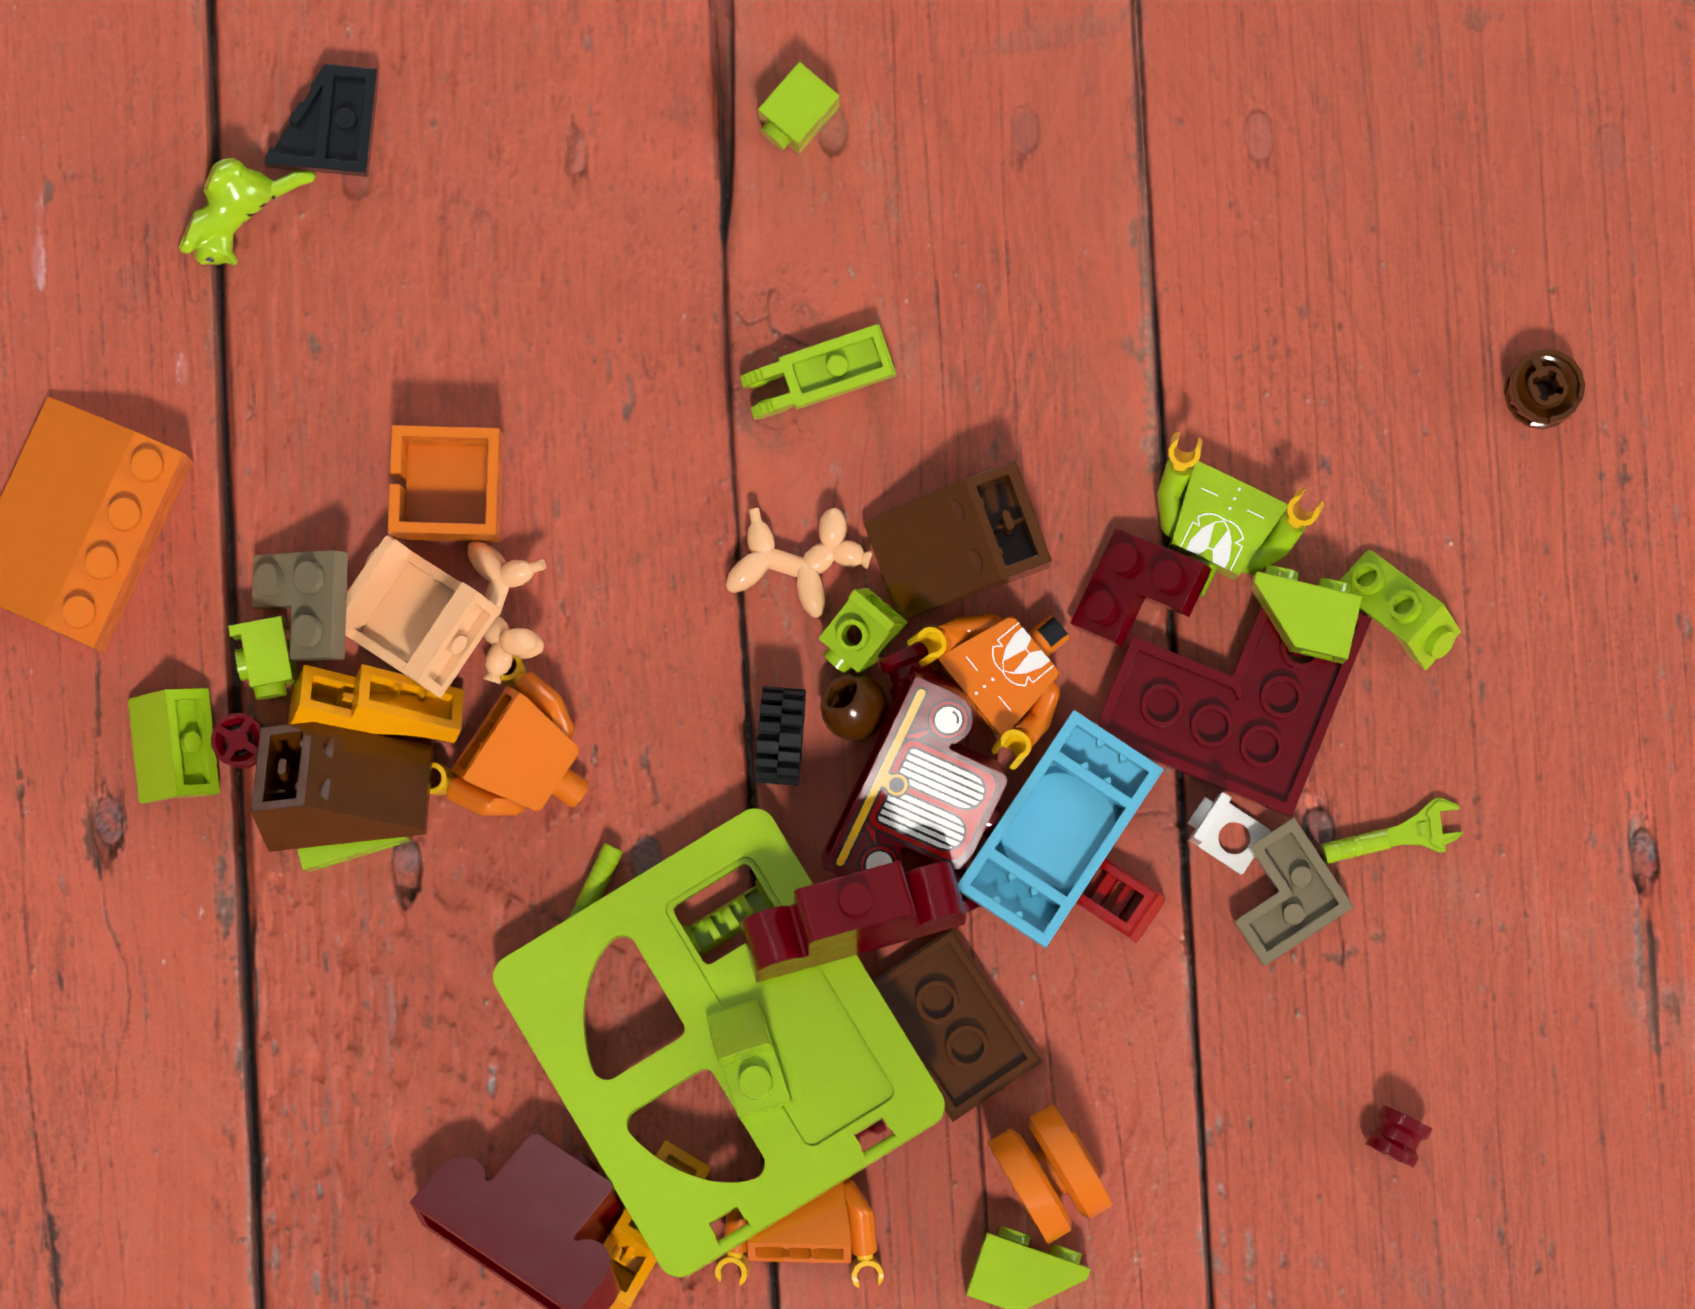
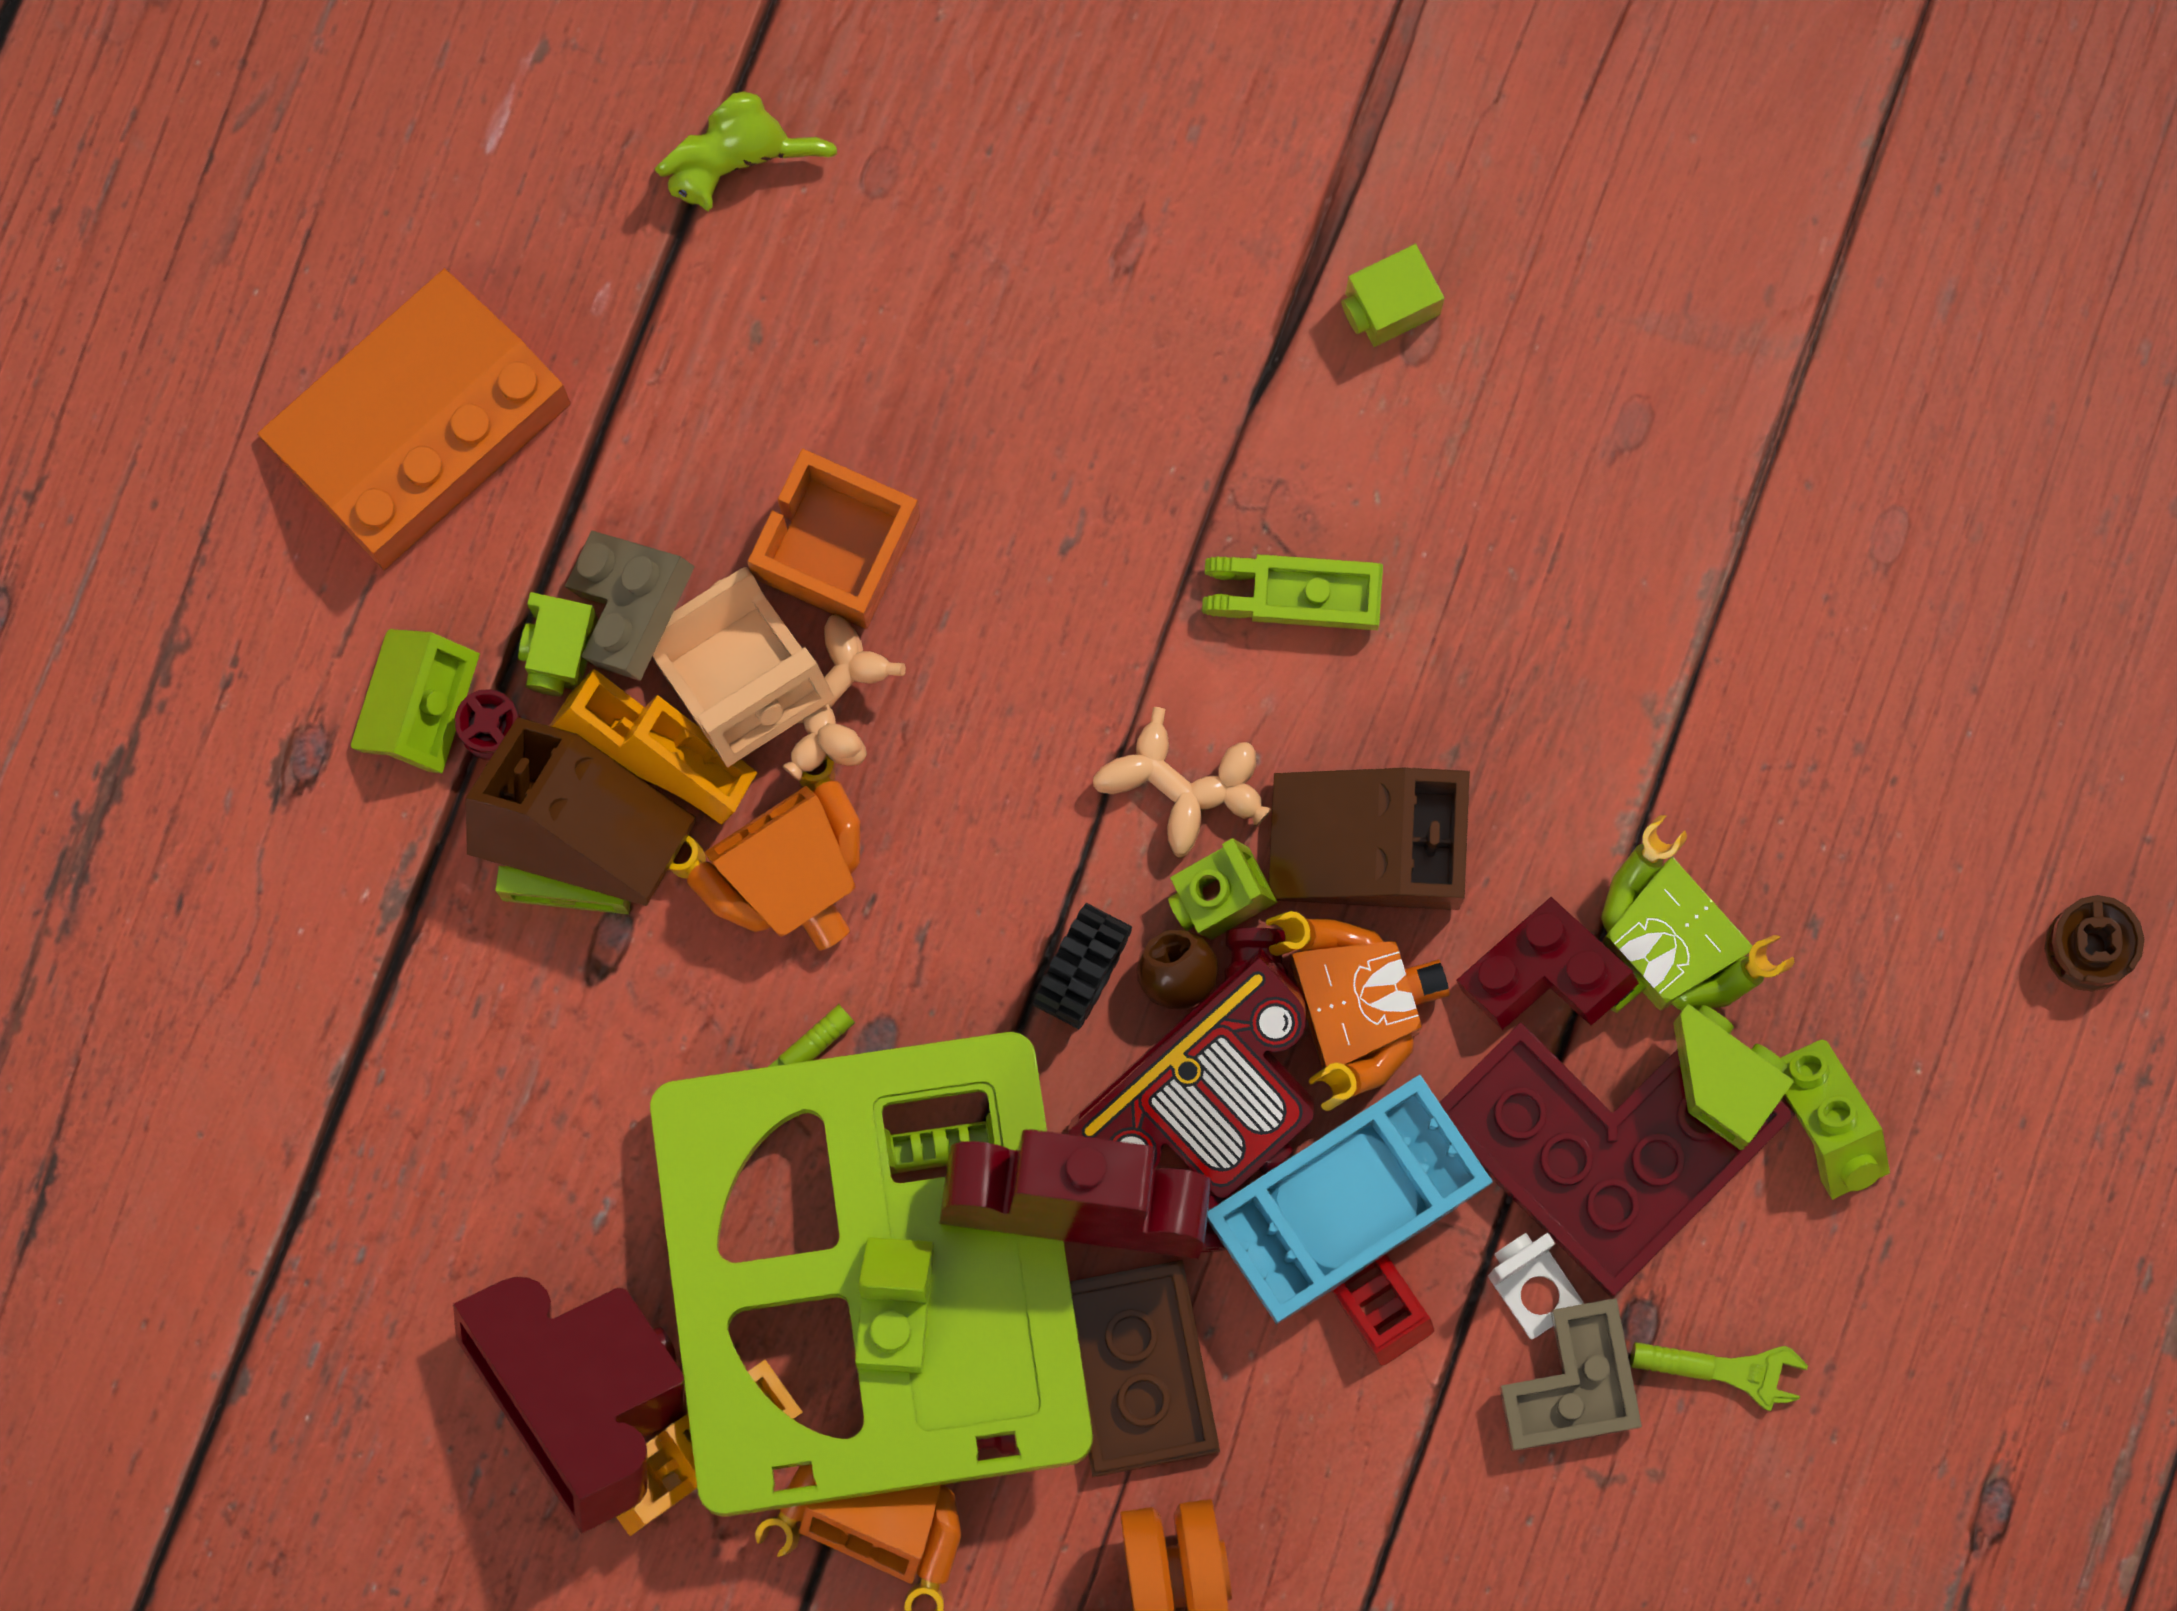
camera: 20 degrees right, 5 degrees down
(332, 125) = (877, 105): black wing -> none

